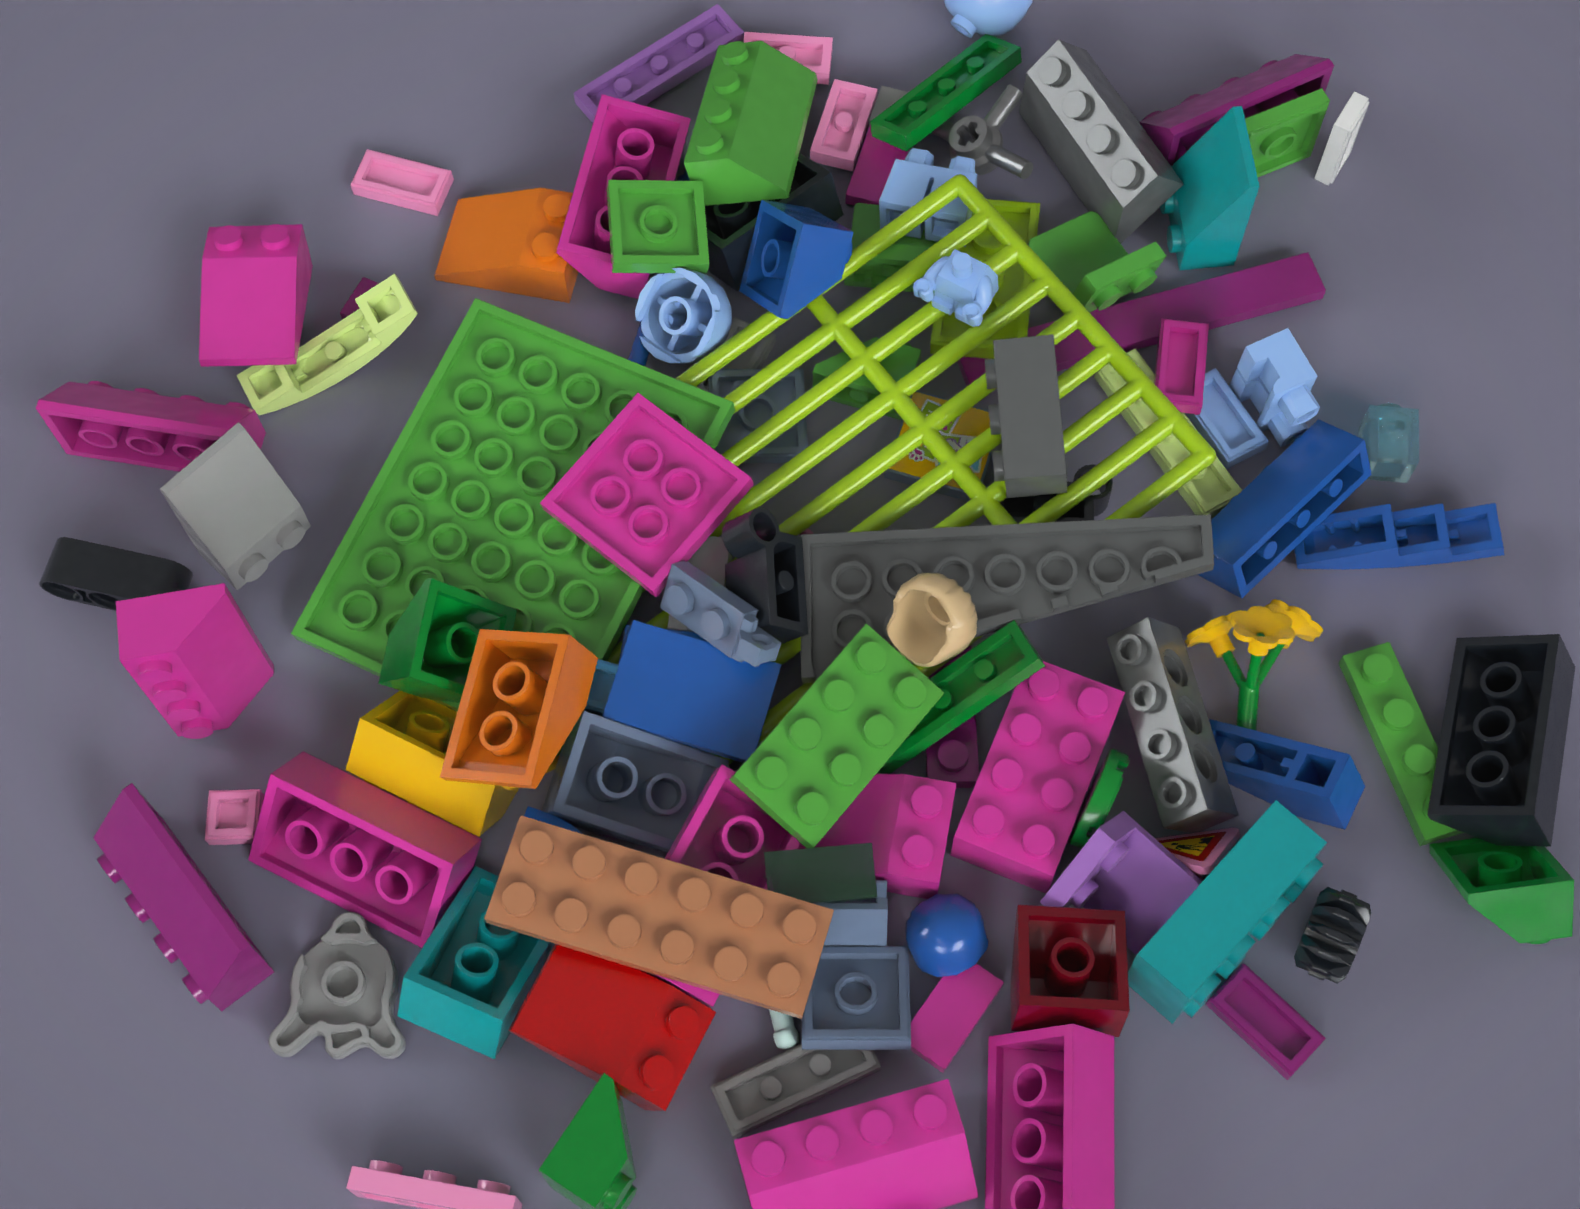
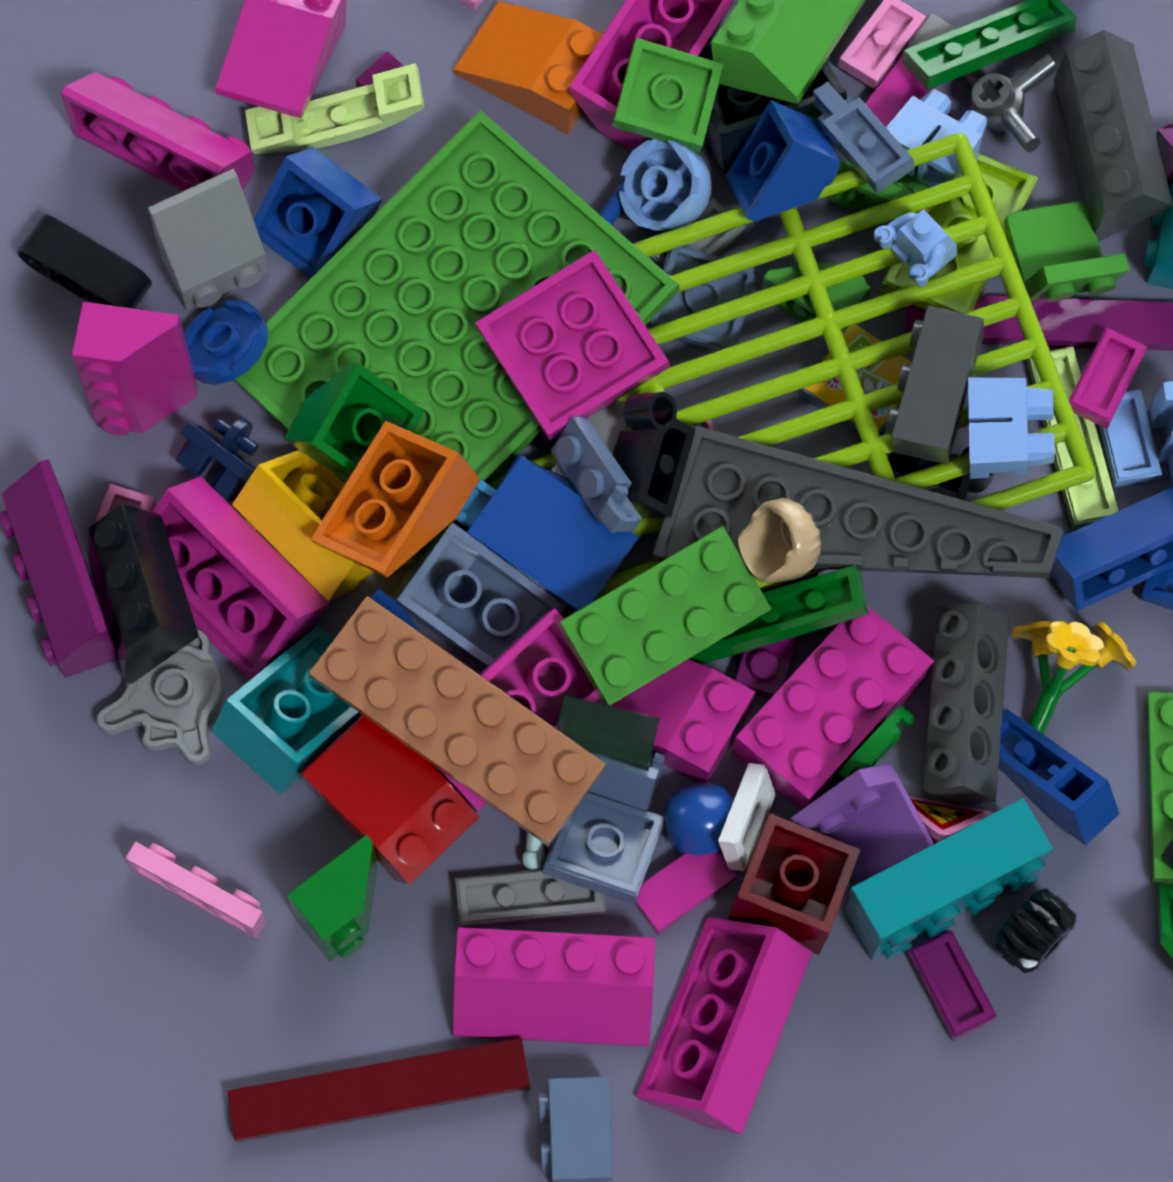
camera: 15 degrees right, 5 degrees up
(273, 889) = (139, 589): none -> black slope
(287, 606) = (226, 341): none -> blue tile
(296, 721) = (204, 446): none -> dark blue hips
(336, 449) = (313, 210): none -> blue slope
(864, 207) = (862, 138): none -> sand blue hinge
(994, 917) = (747, 817): none -> white tile
(1107, 434) = (999, 426): none -> light blue hips

